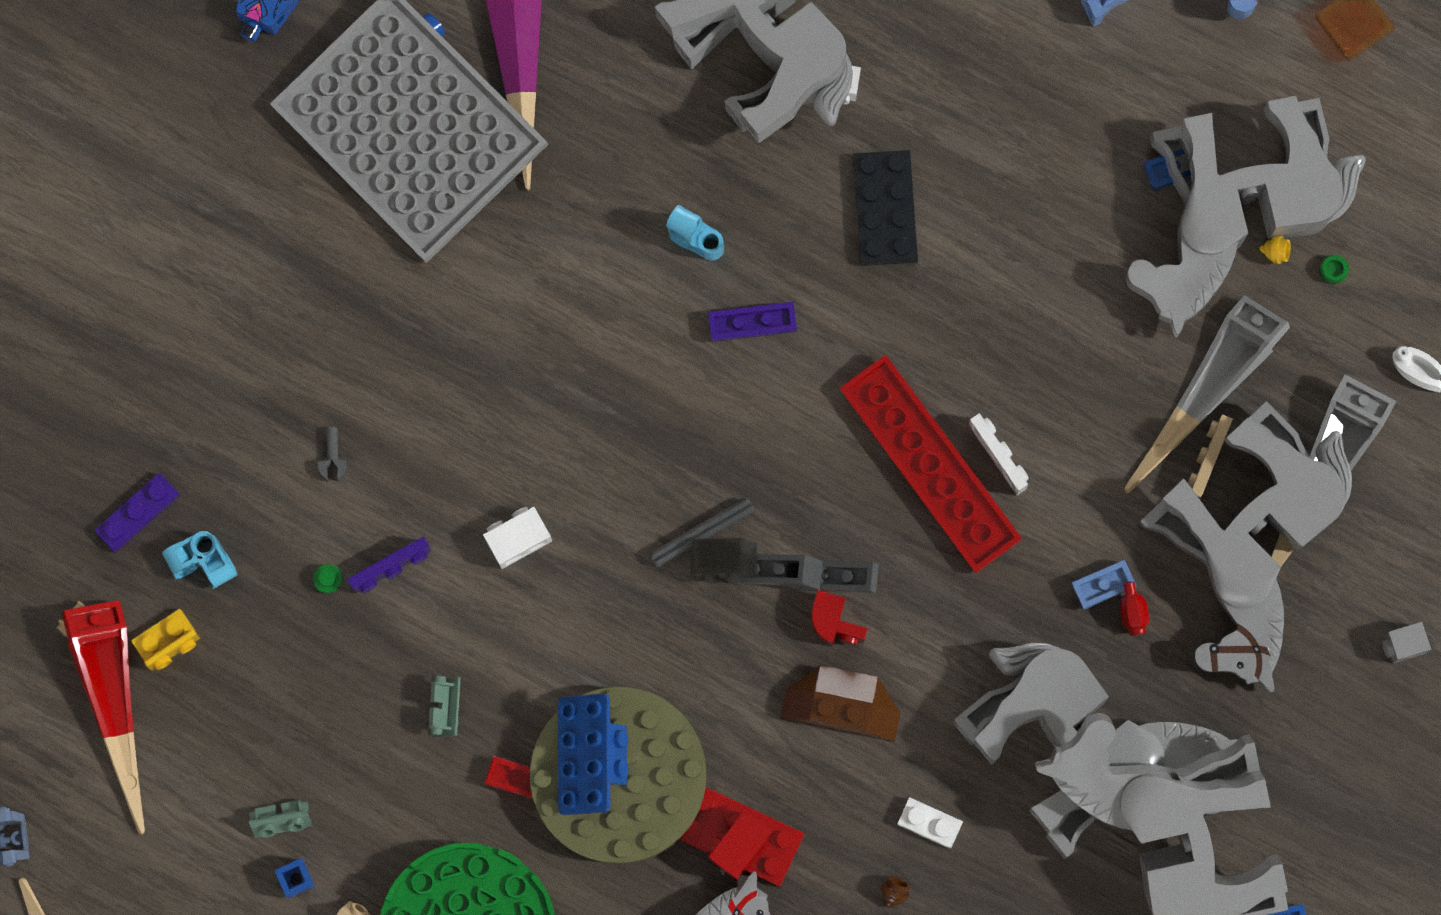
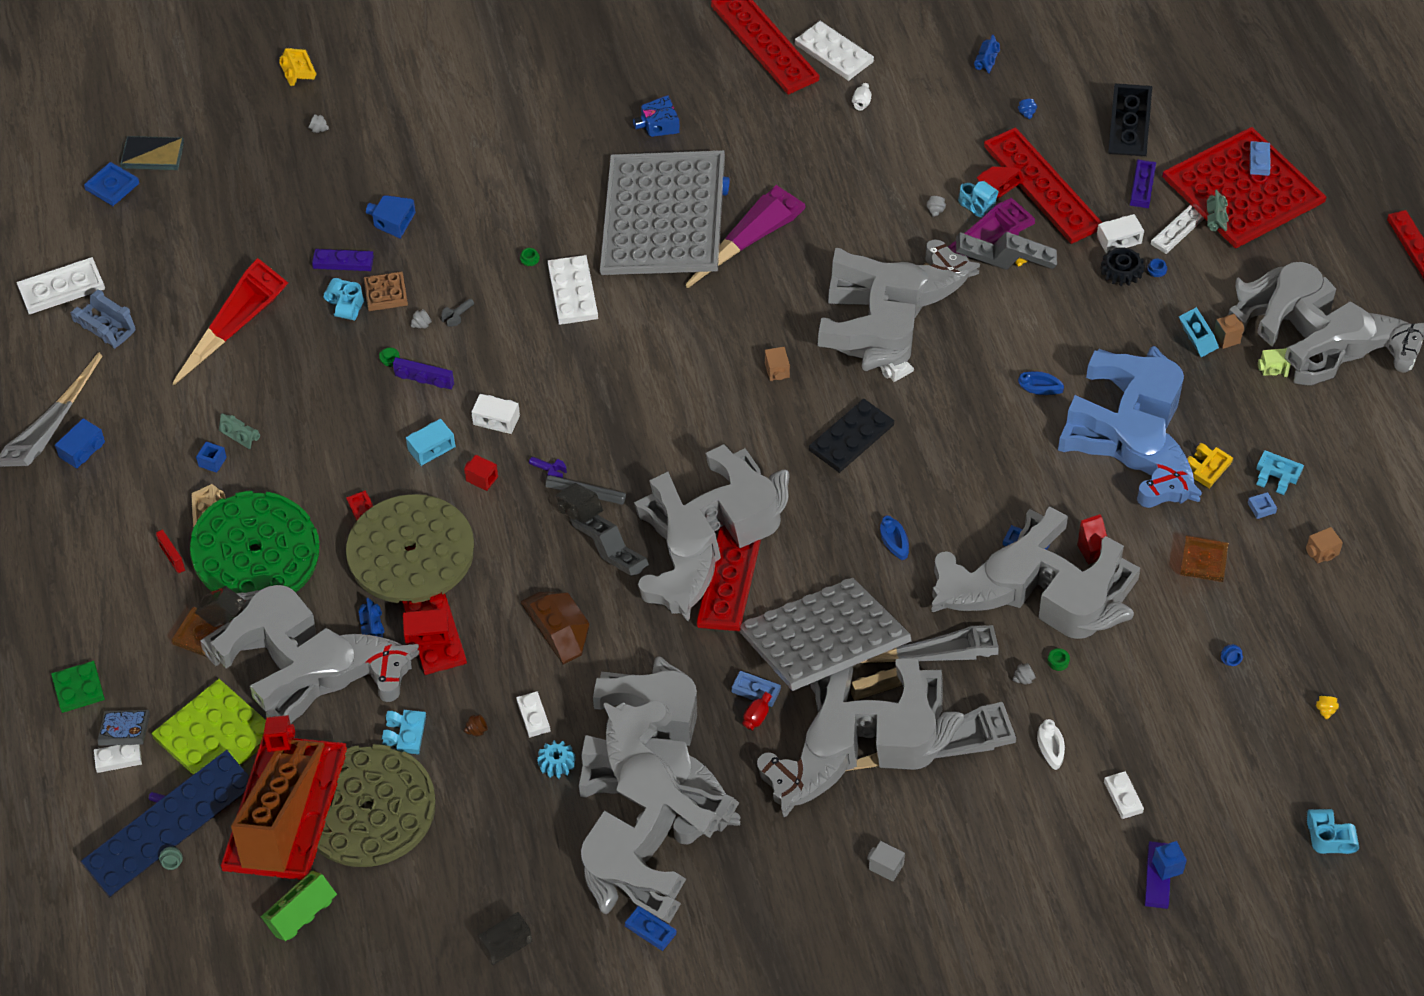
camera: 45 degrees right, 25 degrees down
(125, 408) = (392, 214): none -> blue torso
(166, 640) = (287, 318): yellow bracket -> none
(228, 505) = (385, 291): none -> medium nougat tile
(309, 503) = (420, 319): none -> light grey plate
(330, 315) = (529, 257): none -> green plate
(418, 310) = (572, 289): none -> white plate
(444, 719) = (377, 445): sand green hinge -> none
(491, 635) = (430, 442): none -> medium azure brick
(581, 619) = (481, 472): none -> red brick
(589, 754) = (408, 519): blue bracket -> none
(636, 542) = (551, 468): none -> dark purple bar
(659, 880) = (370, 614): none -> blue hinge
(692, 233) = (740, 361): medium azure piece -> none
(728, 198) = (777, 363): none -> medium nougat brick
(752, 321) = (723, 424): dark purple plate -> none
(827, 622) = (597, 578): red brick -> none
(902, 409) = (745, 507): none -> light grey animal
(999, 453) = (775, 582): white plate -> none
(1012, 858) = (556, 759): none -> medium azure gear
(1050, 286) = (894, 537): none -> blue arm
(1118, 470) = (823, 633): none -> light grey plate
(1244, 108) = (1090, 538): none -> red slope
(1277, 249) = (1037, 622): yellow plate -> none
(1323, 319) = (1024, 674): none -> light grey plate

